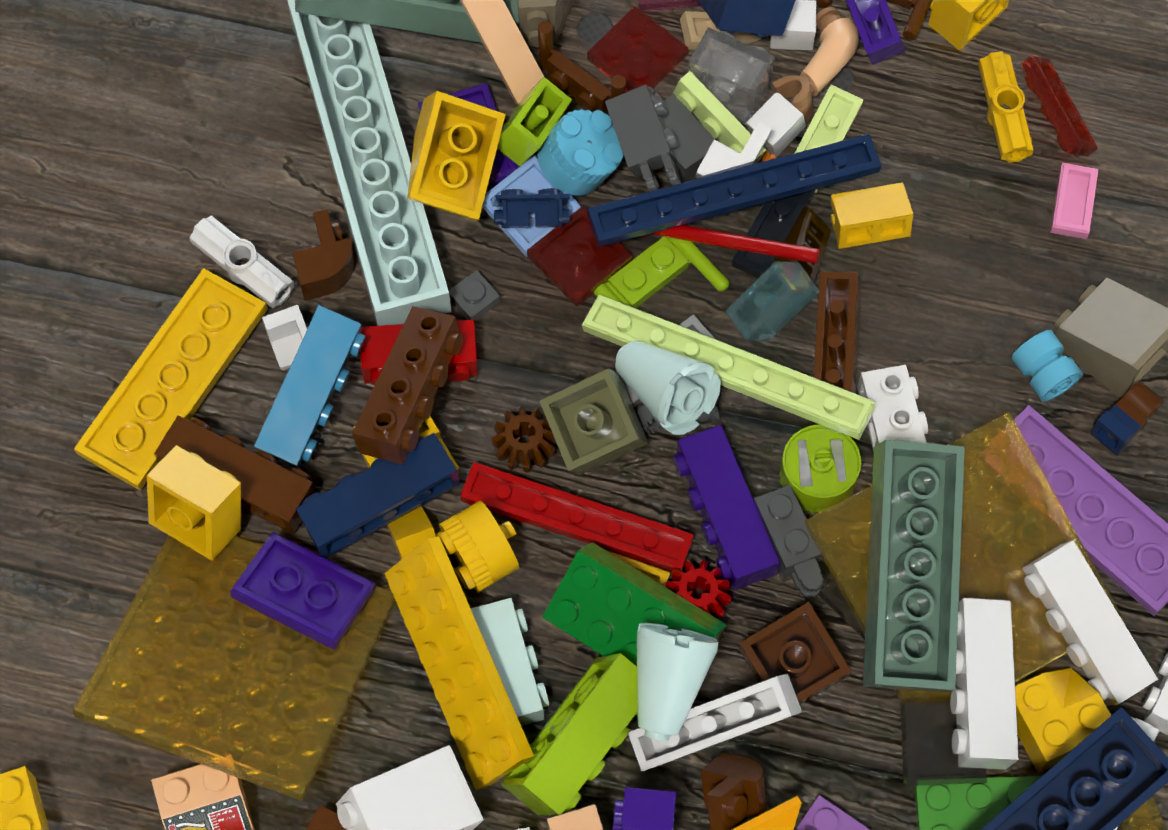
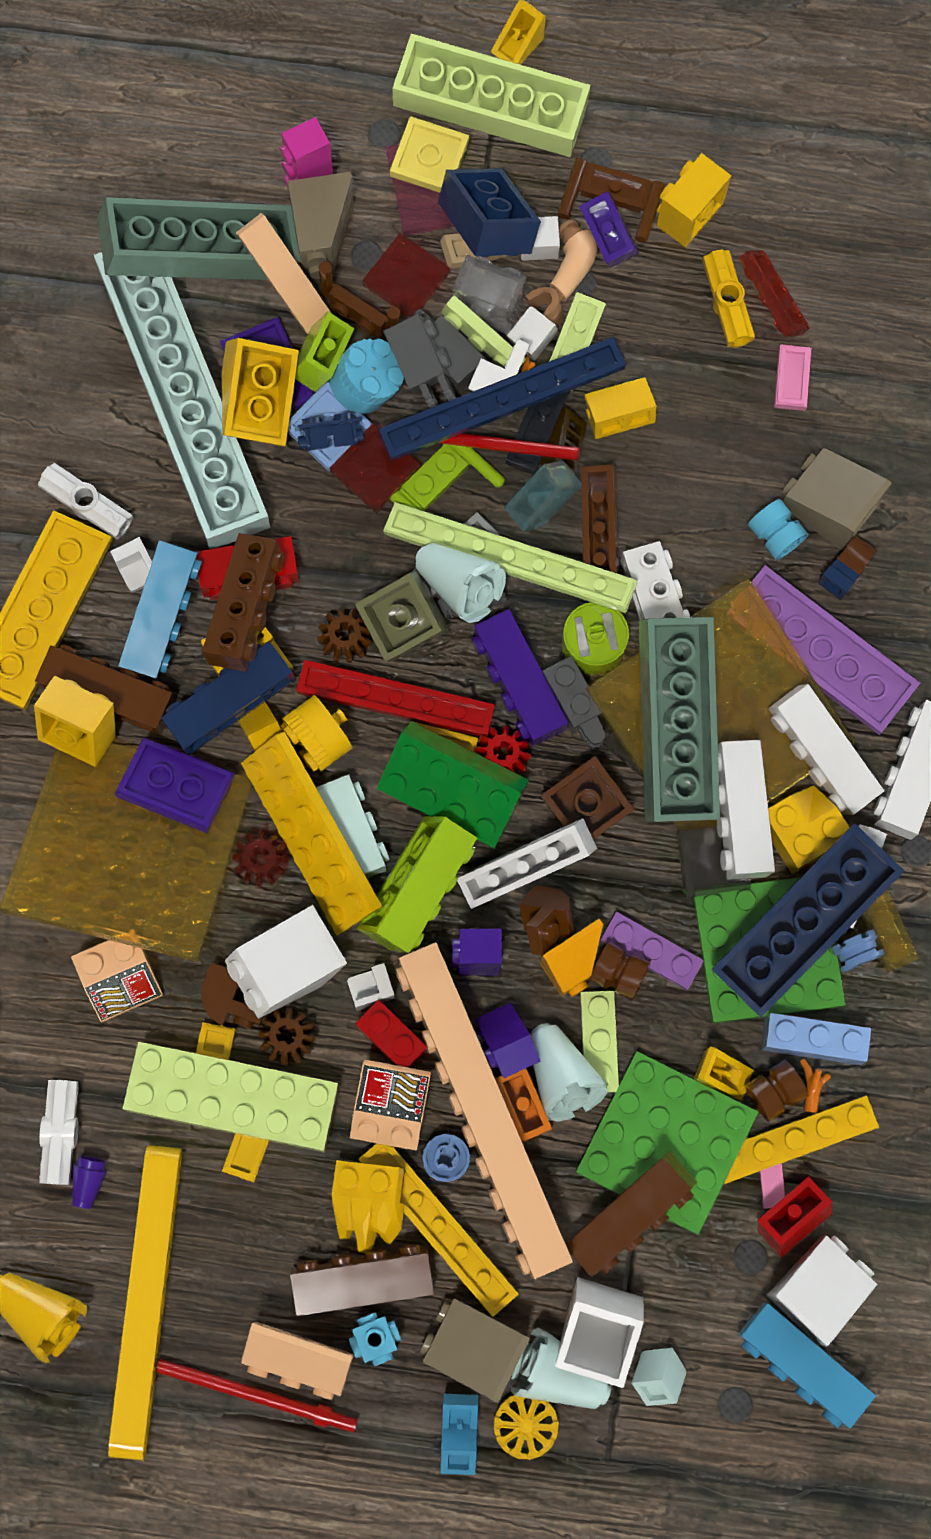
camera: 10 degrees left, 10 degrees up
(325, 266) = (158, 499): reddish brown brick -> none
(379, 692) = (248, 856): none -> clear red gear
(474, 296) = (288, 512): dark grey plate -> none
(669, 676) = (487, 831): light aqua cone -> none

